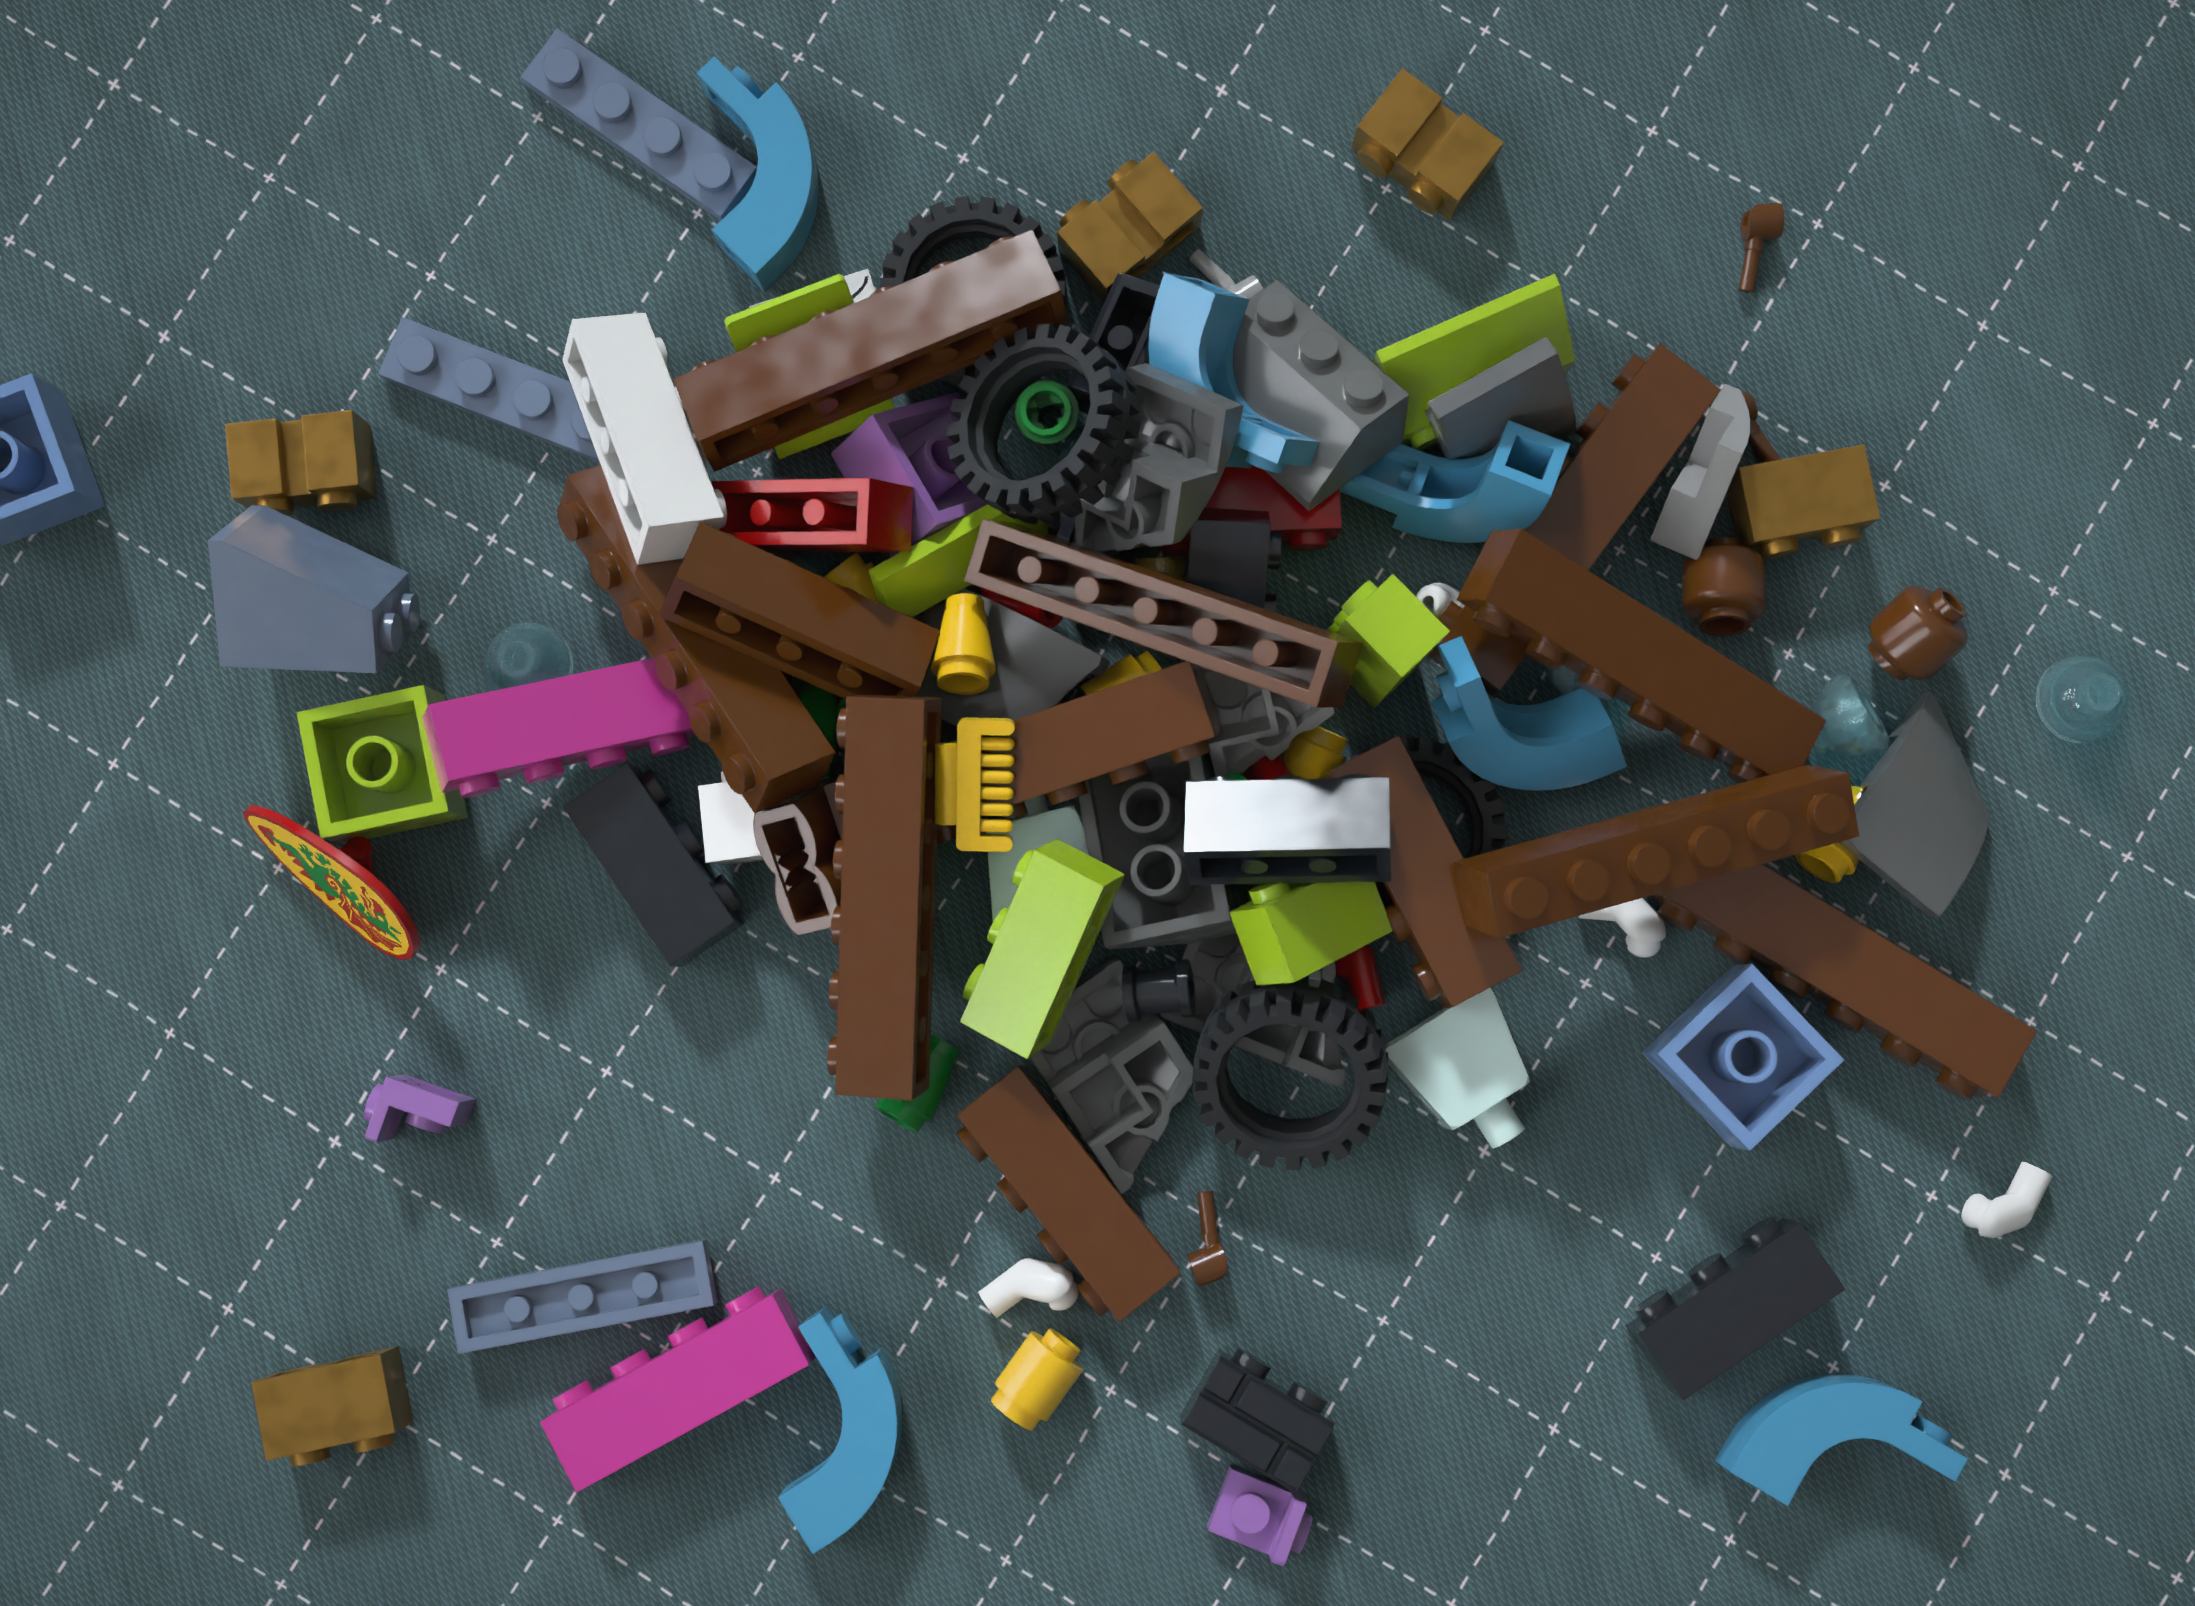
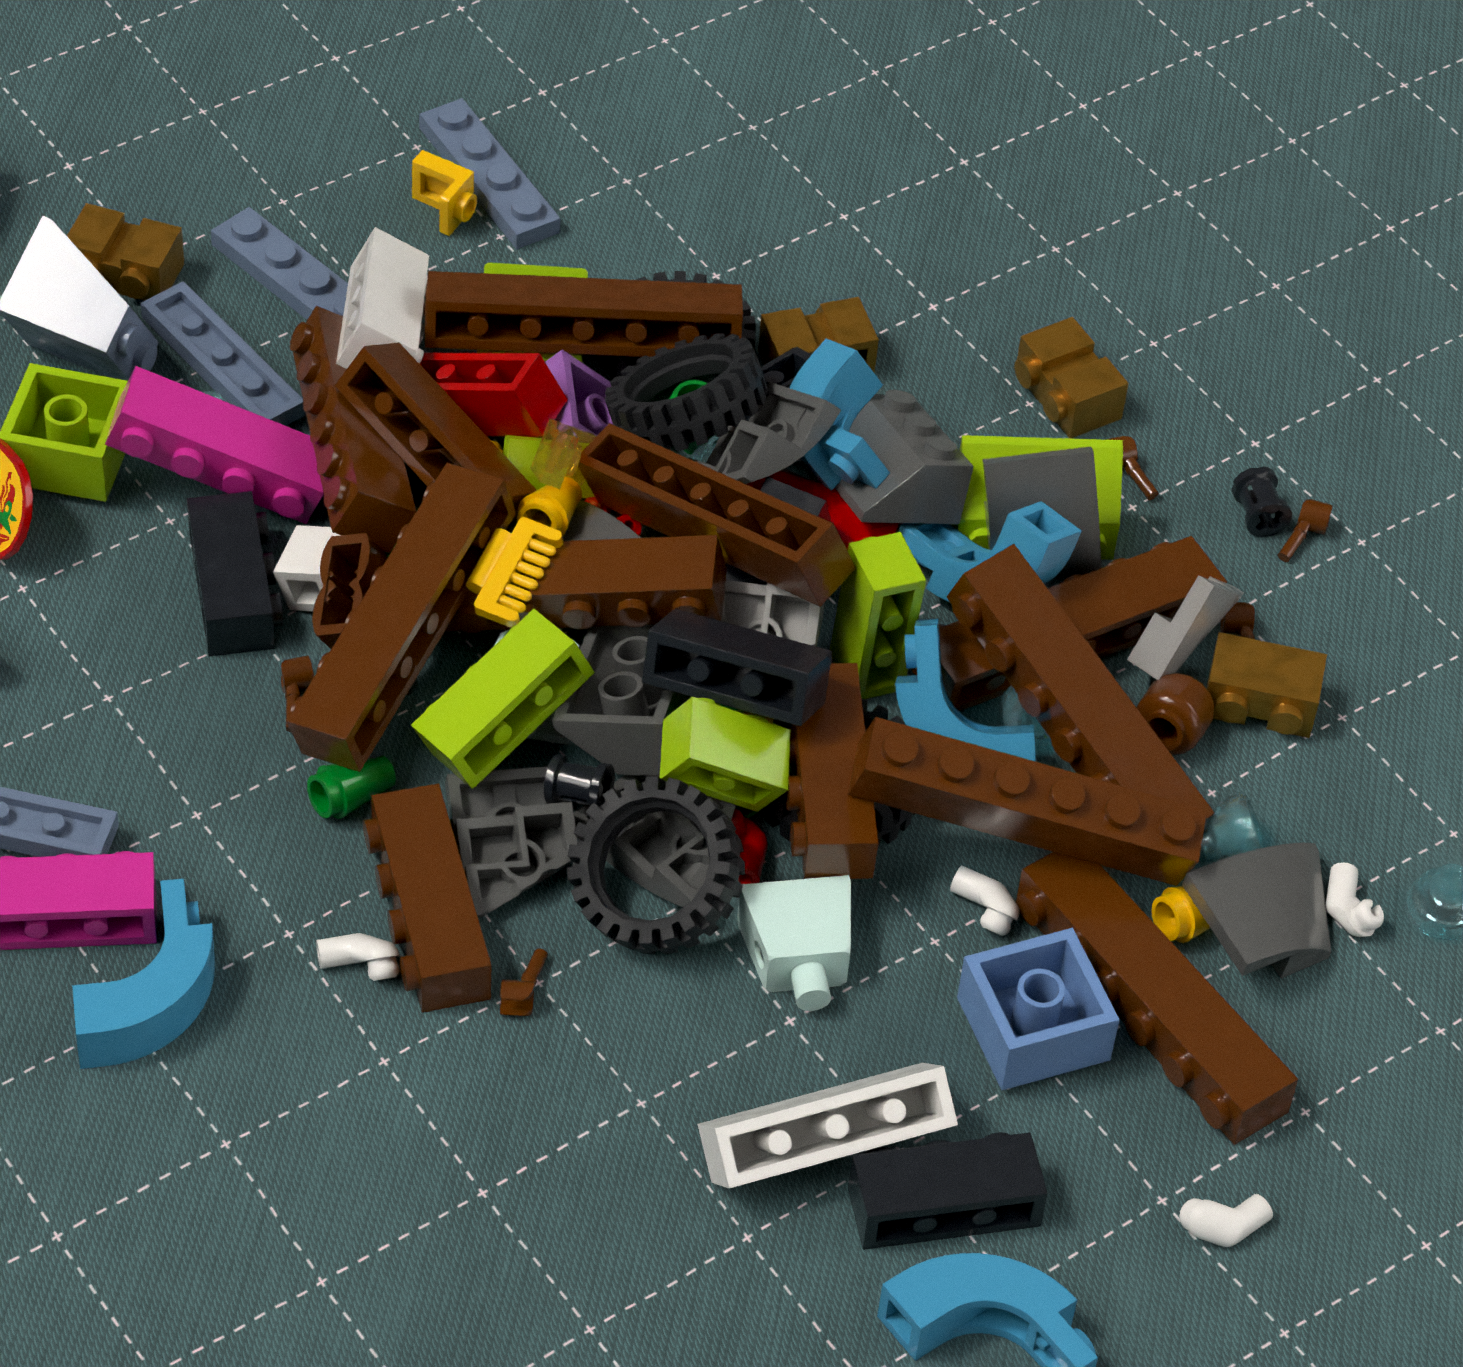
camera: 15 degrees right, 35 degrees down
(488, 560) = (220, 355): none -> sand blue plate
(604, 179) = (444, 188): none -> yellow bracket
(781, 206) = (575, 229): dark azure arch -> none
(788, 964) = (296, 676): none -> reddish brown hand
(945, 585) = (560, 453): none -> clear yellow bracket
(1037, 1378) = (330, 1009): yellow brick -> none
(1257, 1418) = (497, 1108): black brick -> none
(1260, 1515) = (460, 1185): medium lavender bracket -> none
(1524, 226) = (1134, 469): none -> reddish brown hand
(1594, 1298) = (827, 1124): none -> white brick
(1700, 231) = (1261, 501): none -> black bush
(1918, 632) = (1319, 794): reddish brown head -> none
(1987, 753) = (1346, 908): none -> white arm

